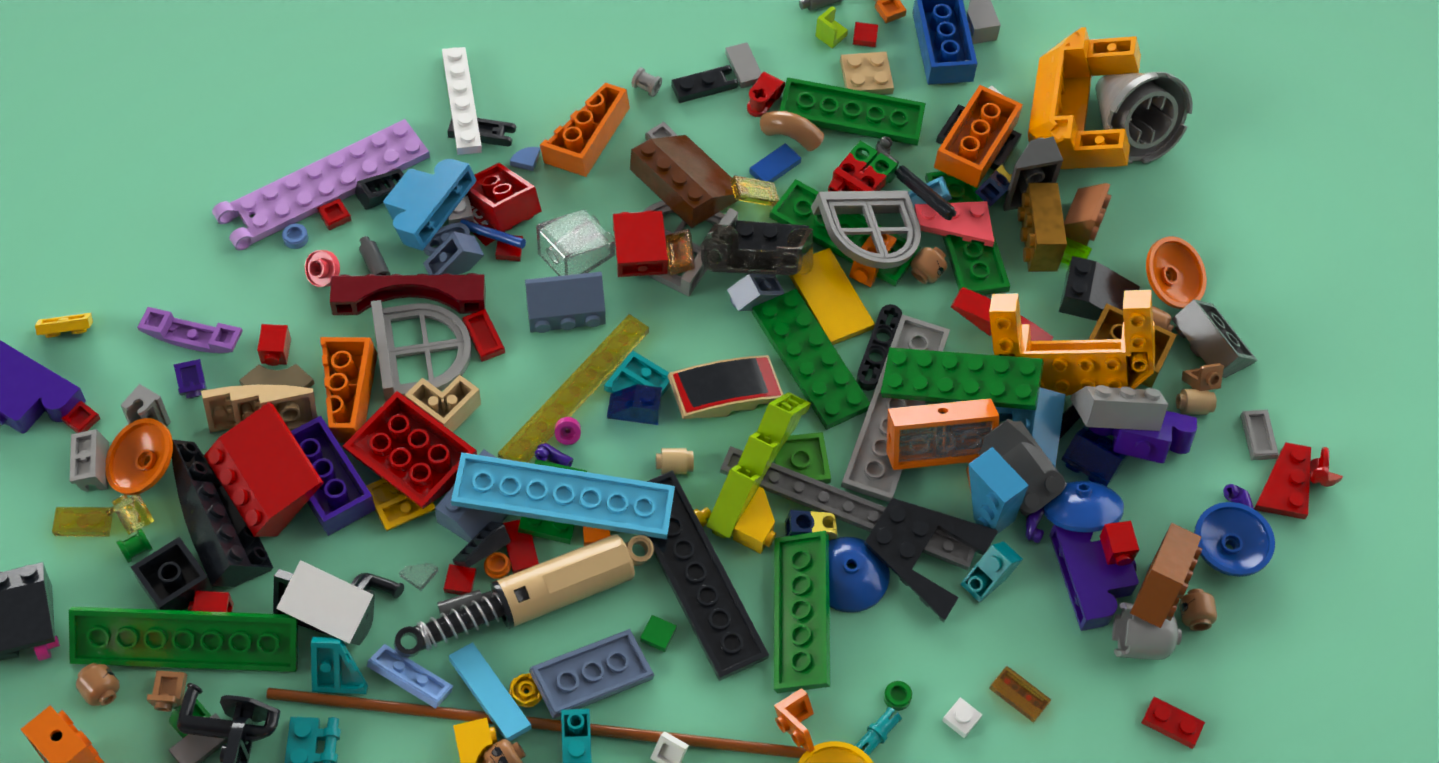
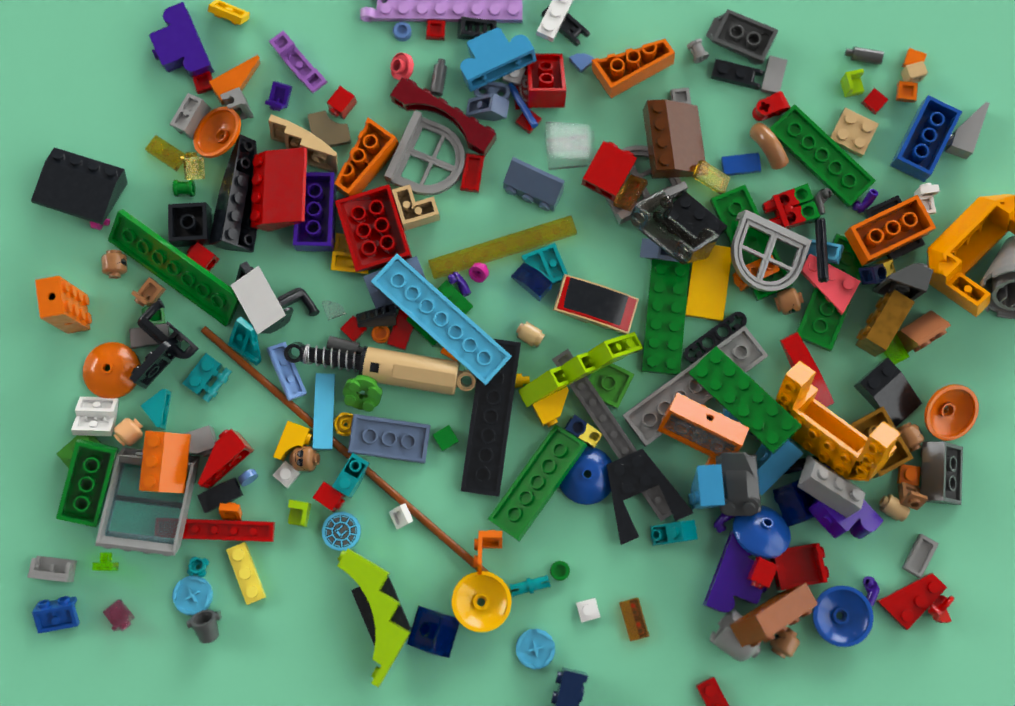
camera: 40 degrees right, 20 degrees up
(121, 385) = (235, 77): none -> orange slope
(534, 649) = (359, 401): none -> bright green plate
(684, 42) = (742, 36): none -> dark grey slope
(932, 129) = (867, 201): none -> dark purple arm
(986, 81) = (927, 189): none -> white plate
(1152, 516) = (800, 566): none -> red panel
(1181, 361) = (909, 474): none -> orange plate

